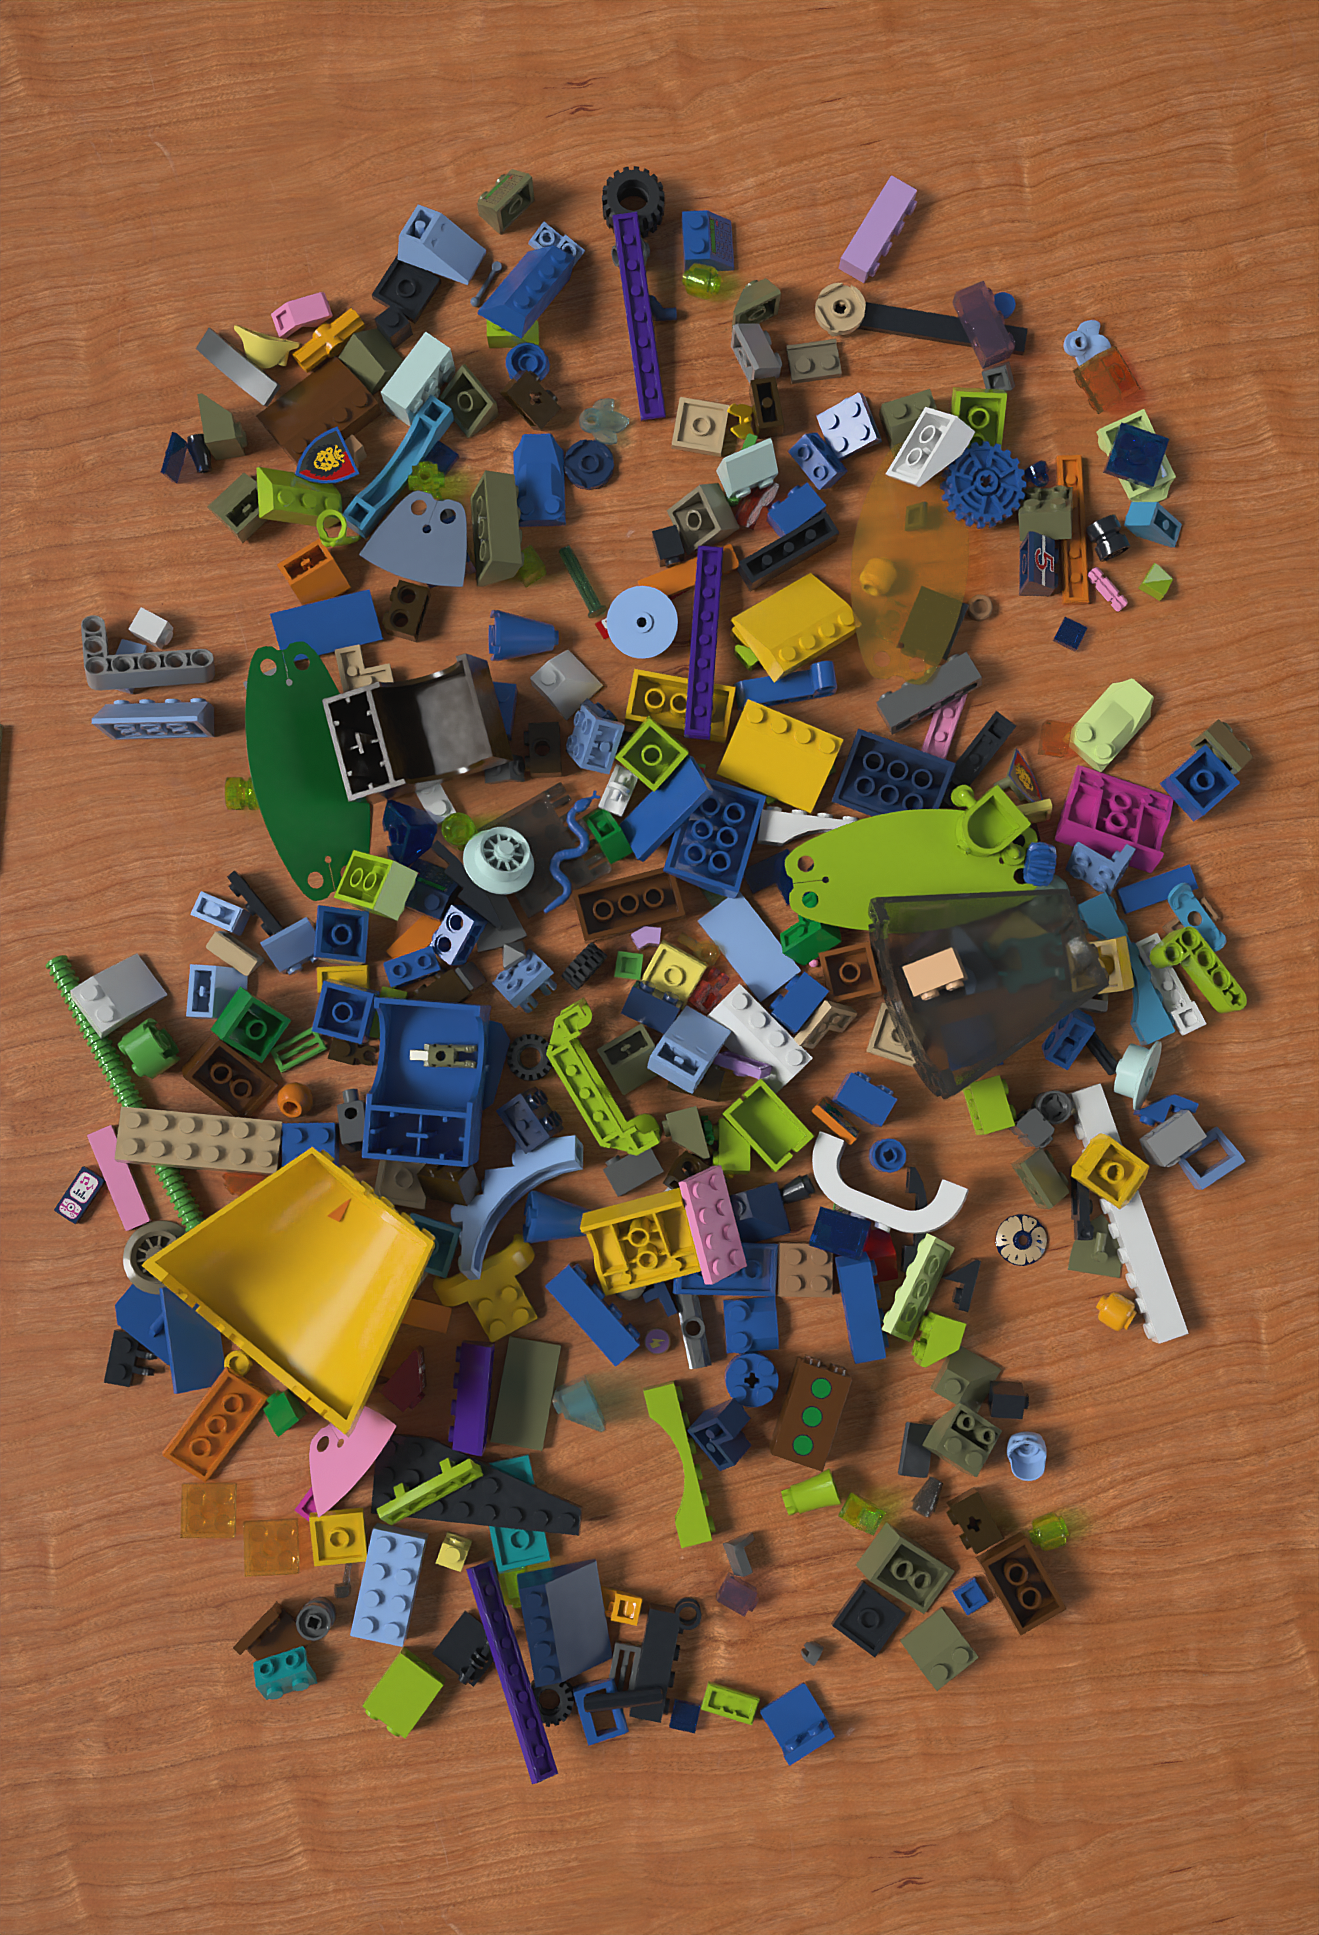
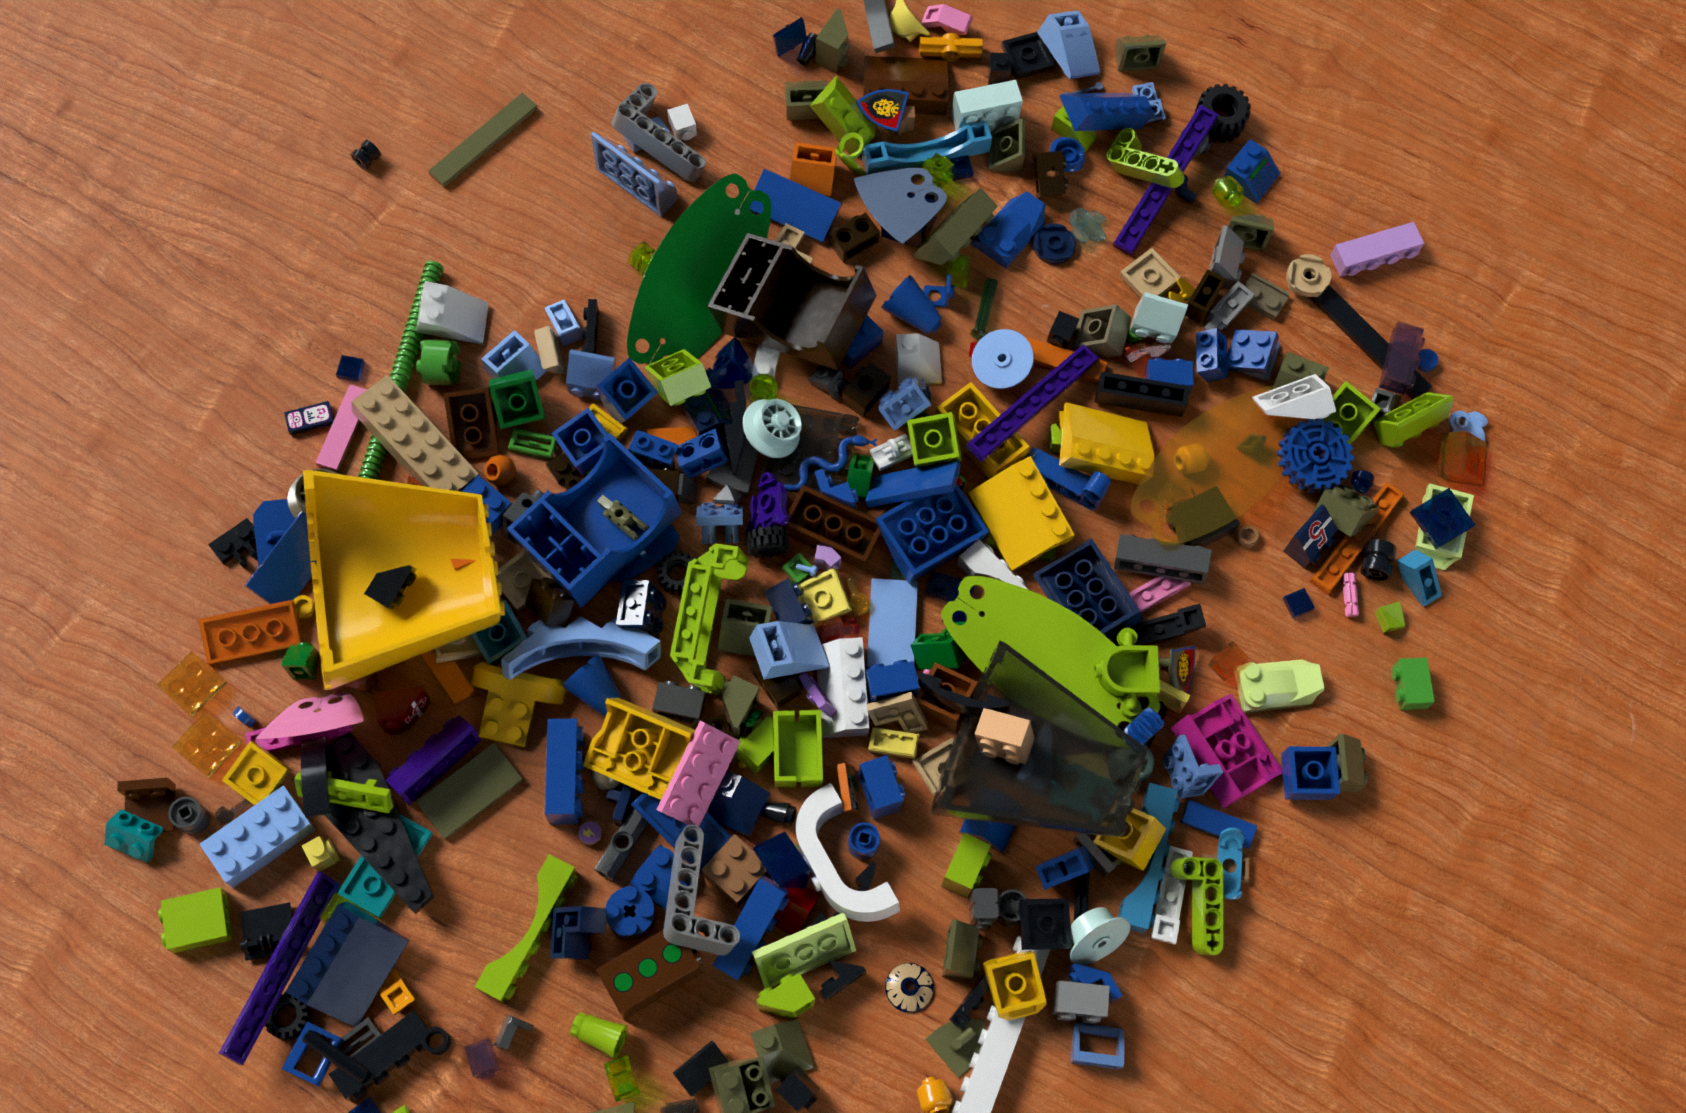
camera: 40 degrees right, 15 degrees down
(71, 1119) = (350, 368): none -> clear blue tile
(280, 1498) = (244, 717): none -> blue tile
(299, 1286) = (389, 585): none -> black slope
(371, 359) = (966, 73): olive slope -> none
(397, 1503) = (315, 777): none -> black slope
(533, 594) = (945, 292): none -> blue bracket
(557, 933) = (769, 505): none -> dark purple tile
(579, 1404) = (499, 823): clear light blue slope -> none
(611, 317) = (1129, 160): none -> lime beam
(613, 870) = (840, 492): none -> blue slope
(645, 958) = (812, 570): none -> light blue piece
(794, 1332) = (686, 897): none -> light grey beam
(795, 400) = (1229, 307): none -> light grey hinge
(839, 1049) = (893, 743): none -> light yellow plate
(841, 980) = (934, 688): none -> black slope
(1036, 376) = (1412, 418): none -> lime slope
(1094, 1101) = (1045, 924): none -> black plate
(1220, 628) = (1413, 683): none -> bright green brick

